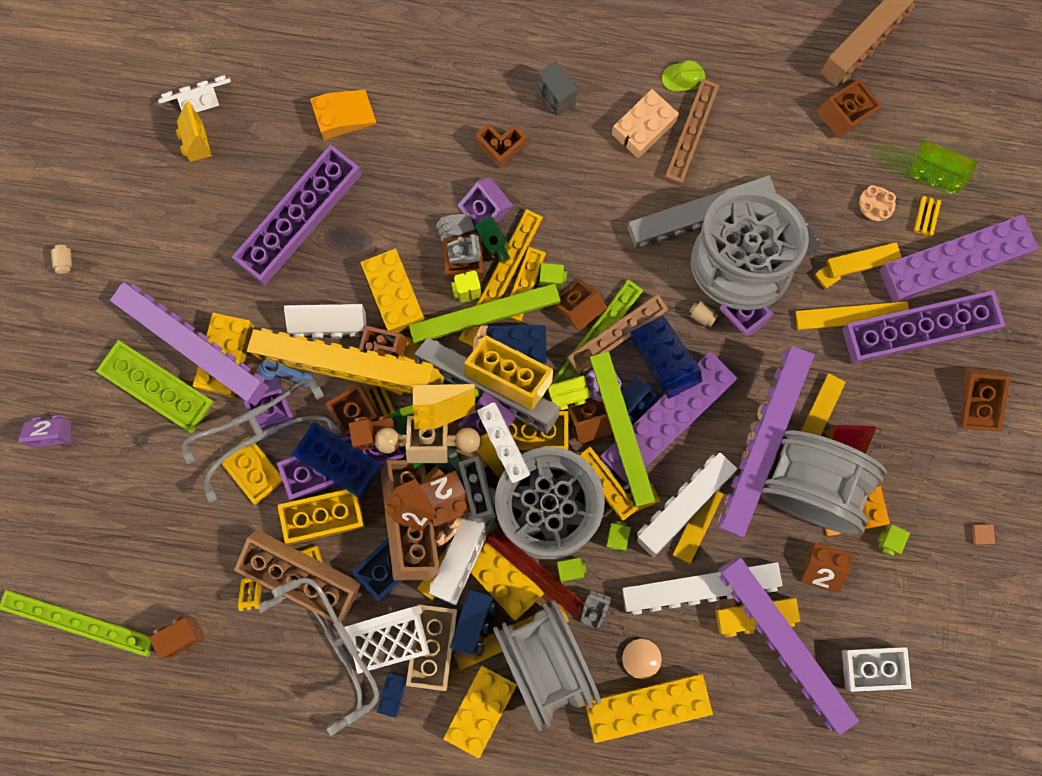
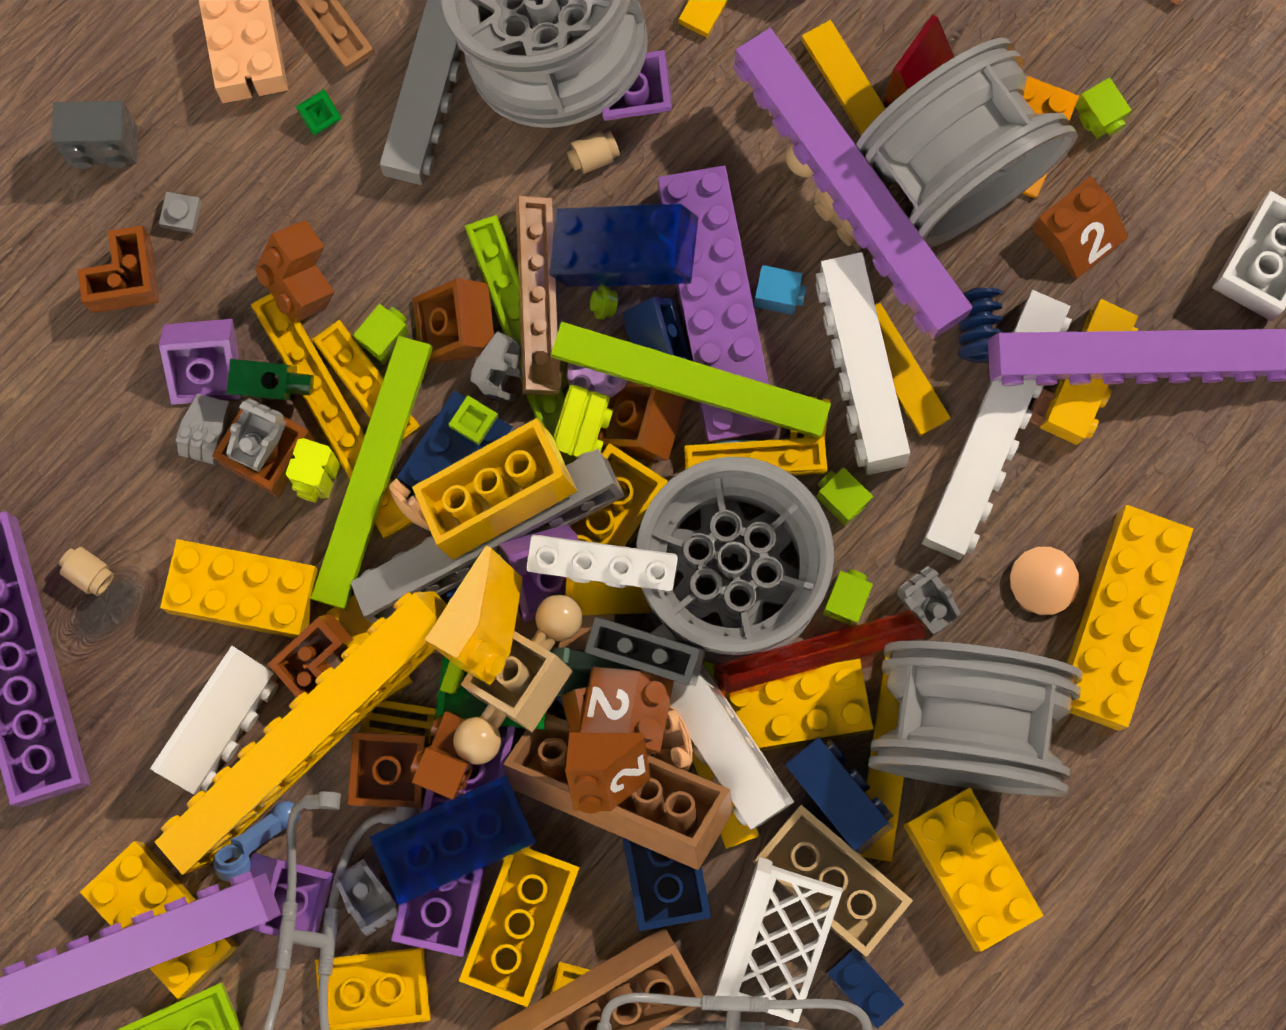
camera: 55 degrees left, 0 degrees up
(289, 438) = (366, 897): none -> light grey hand
(357, 219) = (85, 571): none -> tan brick
(536, 342) = (473, 420): none -> lime plate
(547, 150) = (180, 212): none -> light grey plate
(551, 217) = (292, 274): none -> dark orange brick
(570, 336) = (495, 366): none -> light grey hand
(635, 365) = (604, 302): none -> lime plate
(636, 178) = (318, 112): none -> green tile
(696, 443) = (779, 290): none -> dark azure brick
(745, 547) = (978, 325): none -> dark blue piece

